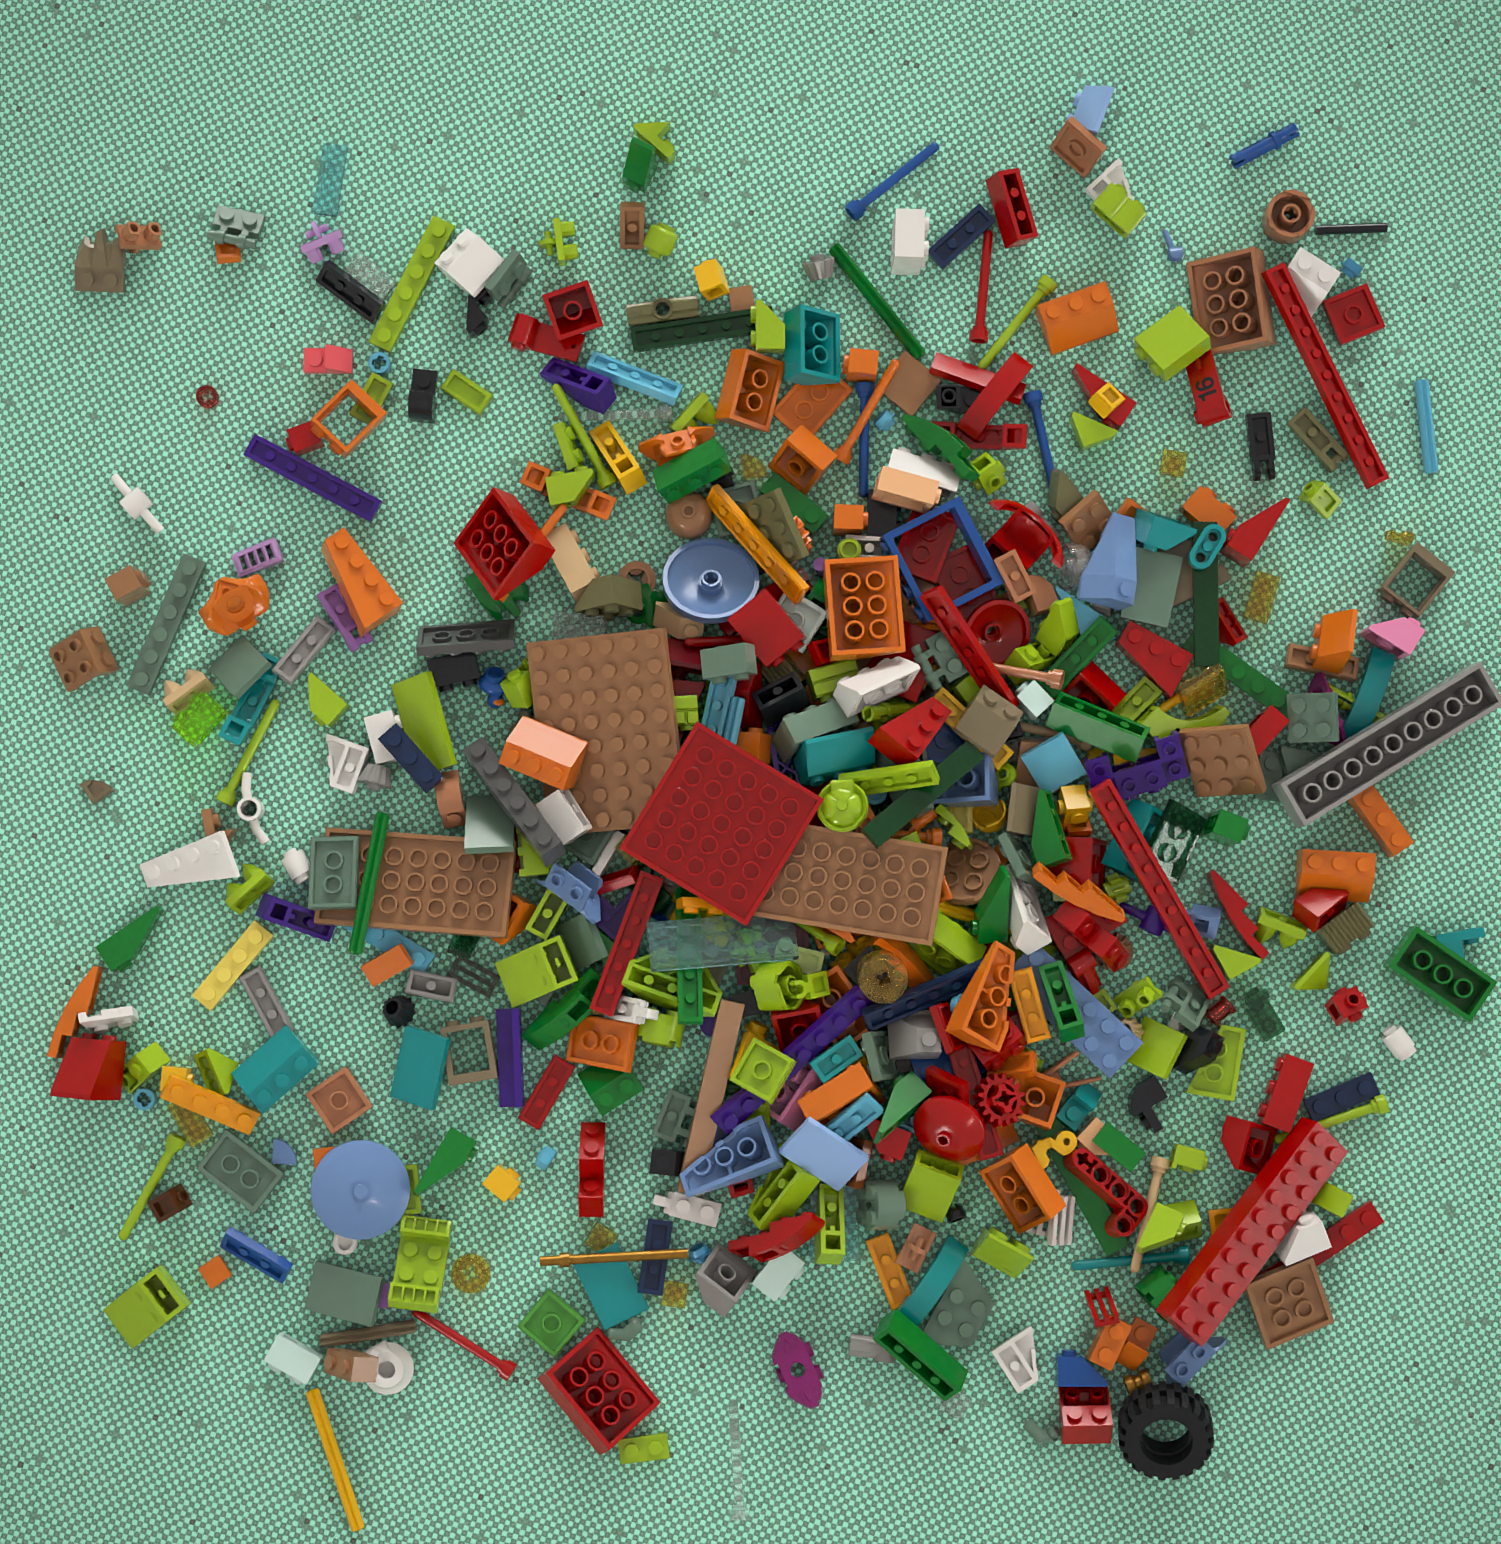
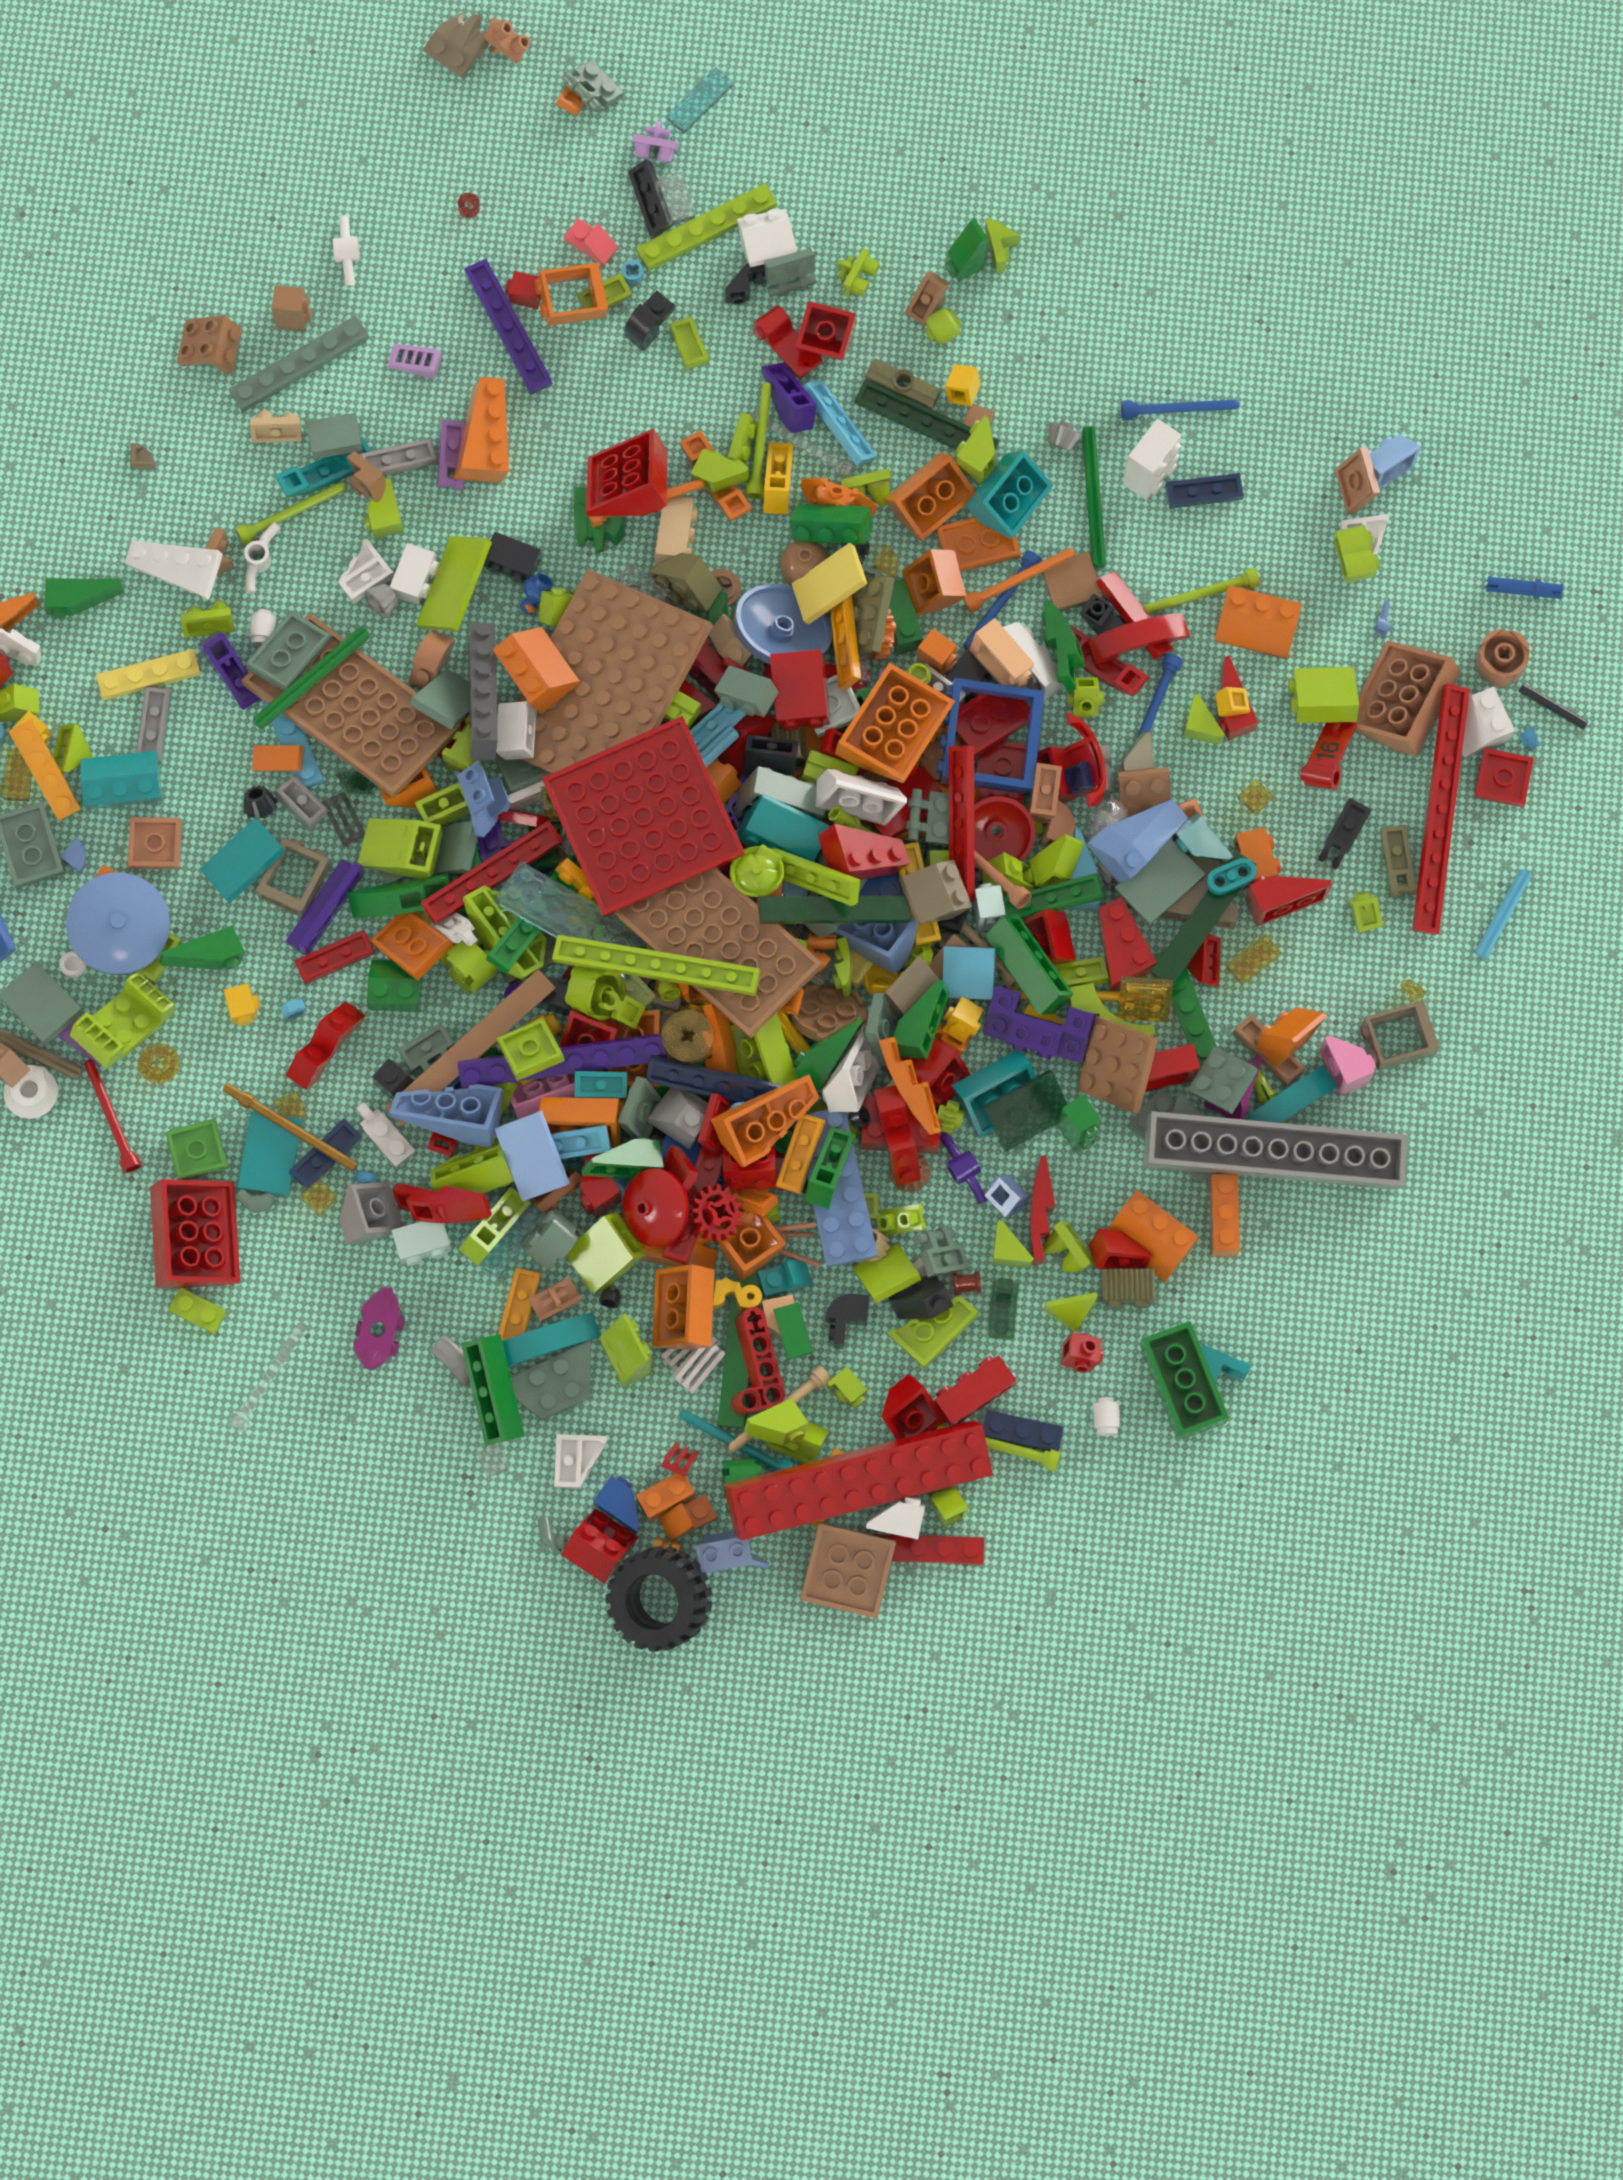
camera: 35 degrees right, 10 degrees down
(199, 718) = (269, 454): clear neon green brick -> none
(235, 604) = (369, 392): orange piece -> none
(294, 688) = (367, 478): none -> medium nougat slope
(411, 758) = (422, 600): dark blue plate -> none
(466, 637) = (545, 538): dark grey plate -> none
(679, 674) = (700, 685): clear red bush -> none
(725, 522) = (829, 583): none -> light yellow tile
(818, 938) = (656, 965): none -> lime plate
(860, 365) = (1040, 535): orange brick -> none
(885, 420) = (1029, 598): medium azure plate -> none
(979, 331) = (1163, 580): red piece -> none
(1011, 208) = (1264, 493): red brick -> none
(1031, 546) = (1079, 777): none -> clear blue tile
(1056, 944) = (860, 1118): none -> black hinge
(1083, 969) = (870, 1160): red piece -> none
(1158, 888) = (984, 1135): red plate -> none

